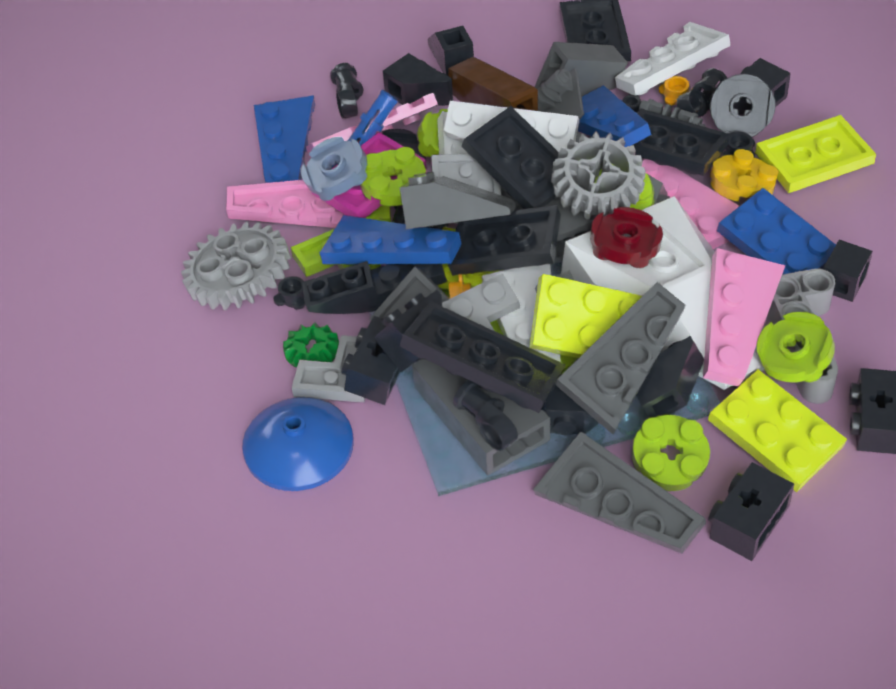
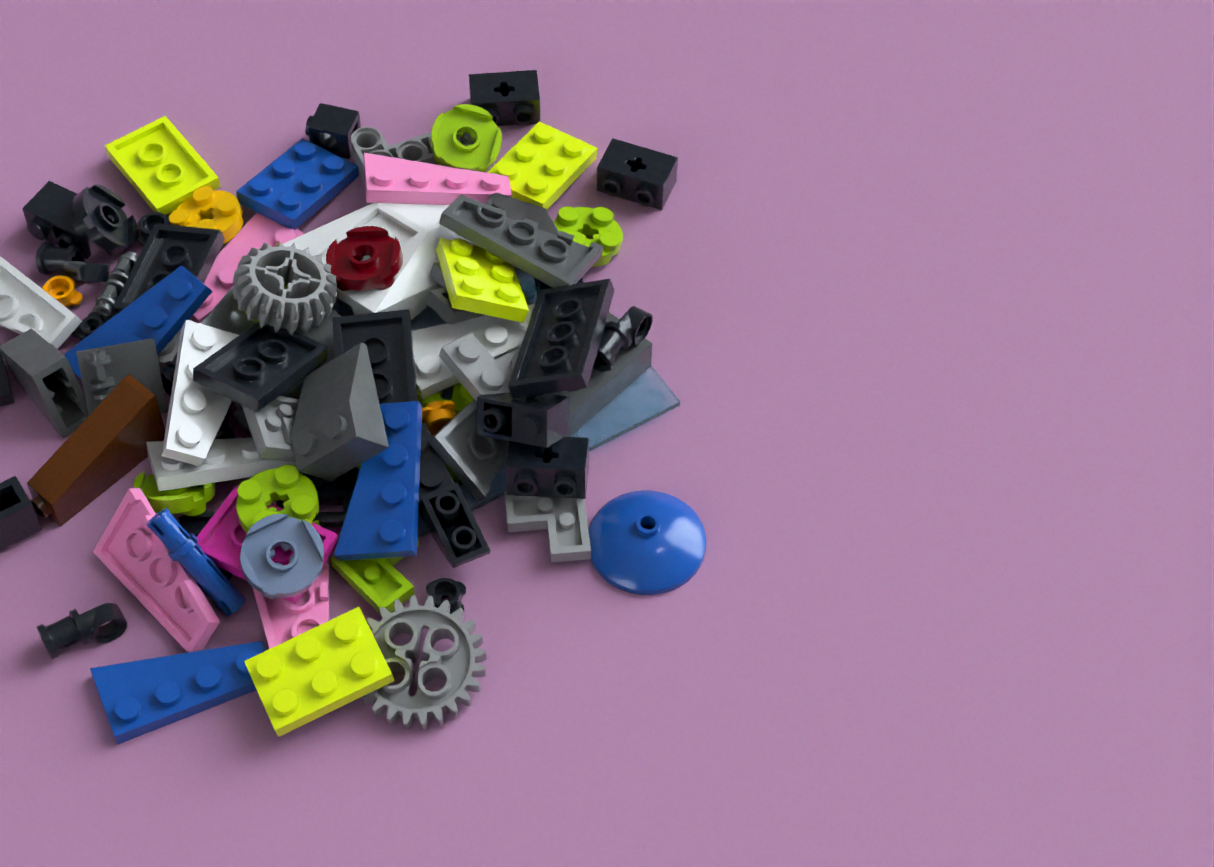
camera: 110 degrees left, 5 degrees up
(244, 199) = (319, 671): none -> neon yellow plate
(323, 351) = (503, 567): green gear -> none
(413, 78) = (61, 552): black slope -> none
(613, 492) = (648, 262): dark grey wing -> none

